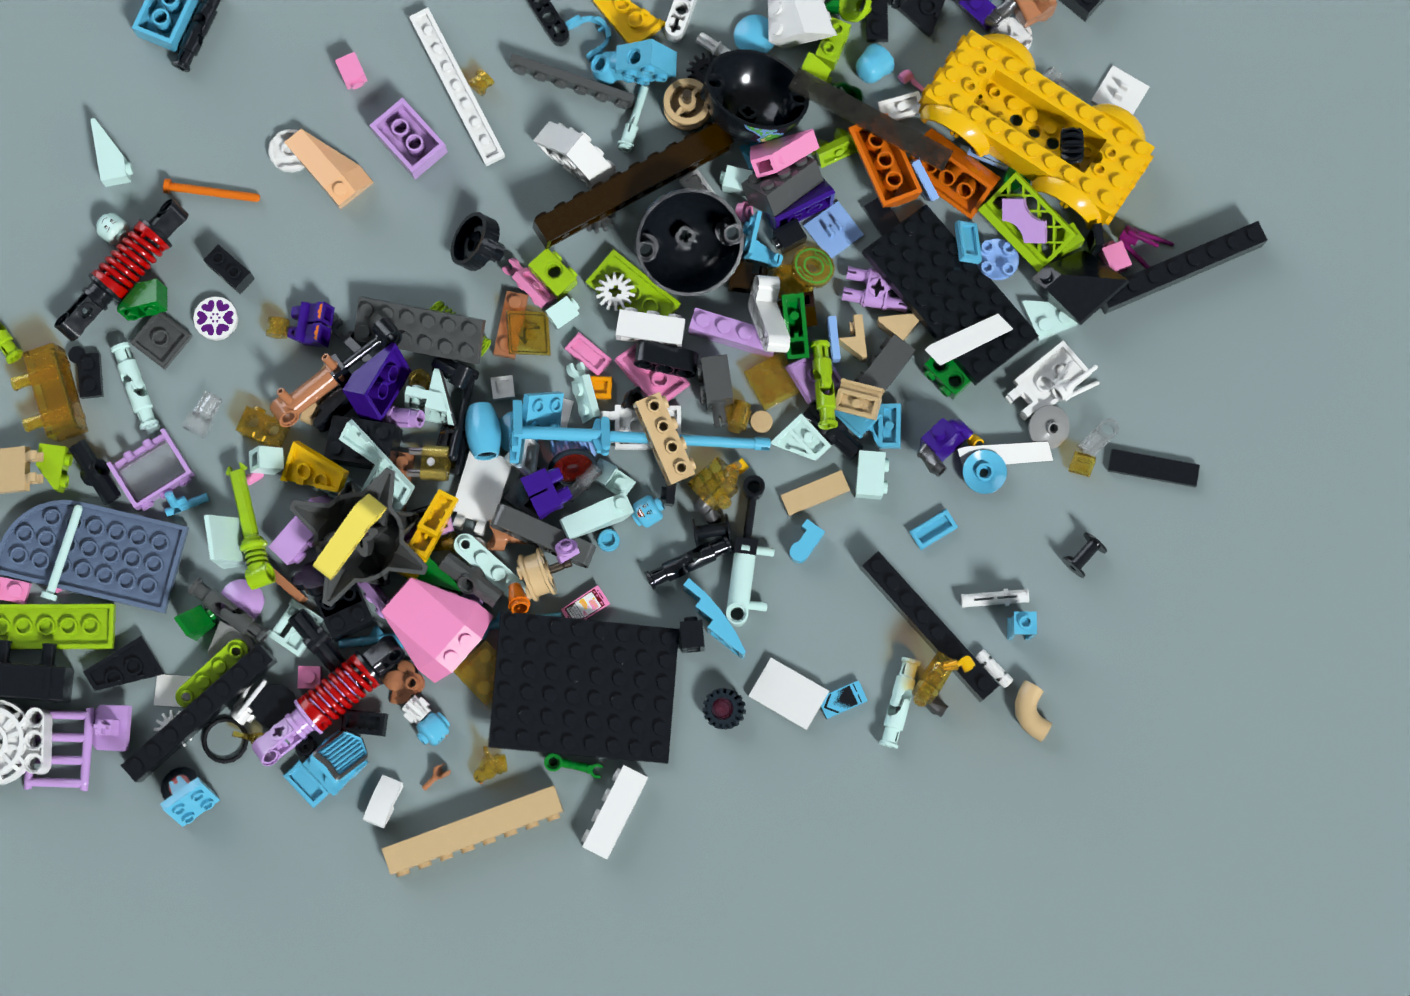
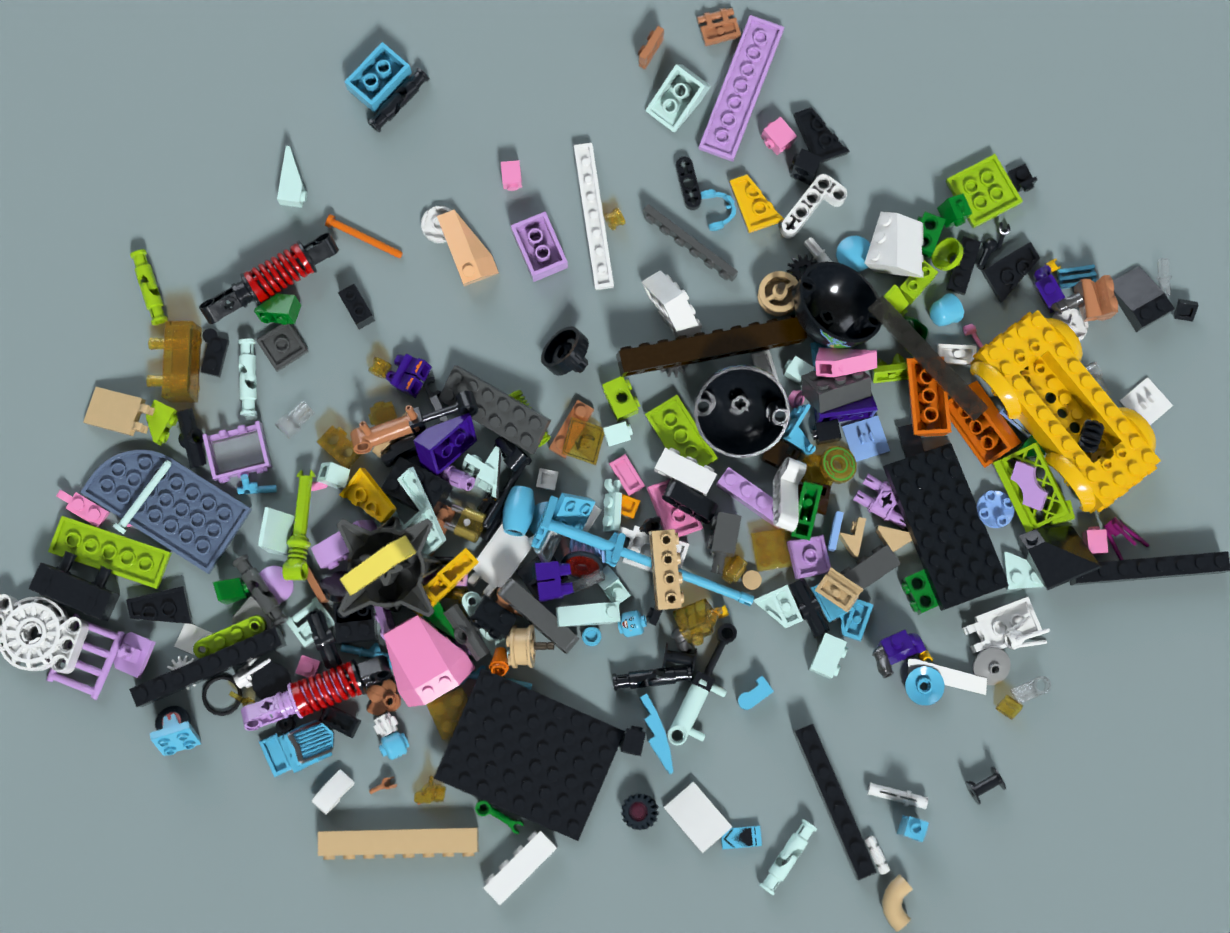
camera: 20 degrees right, 0 degrees up
(112, 228) = (273, 241): light aqua head -> none
(215, 318) = (332, 343): tile -> none
(296, 375) = (382, 413): none -> clear yellow brick
(419, 373) = (484, 452): clear yellow wheel -> none
(494, 555) = (492, 618): none -> black bracket
(529, 283) = (598, 400): bright pink plate -> none
(566, 549) = (553, 634): lavender plate -> none
(586, 605) = (554, 685): tile -> none
(621, 298) = (658, 433): white gear -> none
(631, 128) = (725, 298): light aqua pin -> none
(636, 63) = (747, 245): medium azure brick -> none
(815, 493) = (776, 655): tan tile -> none
(822, 374) = (816, 557): lime piece -> none
(928, 190) = (956, 429): light blue tile -> none
(933, 529) = (865, 719): medium azure tile -> none
(934, 679) = (823, 848): clear yellow torso -> none
(968, 242) = (975, 487): medium azure tile -> none
(968, 339) = (948, 570): white sticker -> none
(1095, 239) = (1084, 521): black tile -> none
(1153, 468) = (1069, 730): black tile -> none

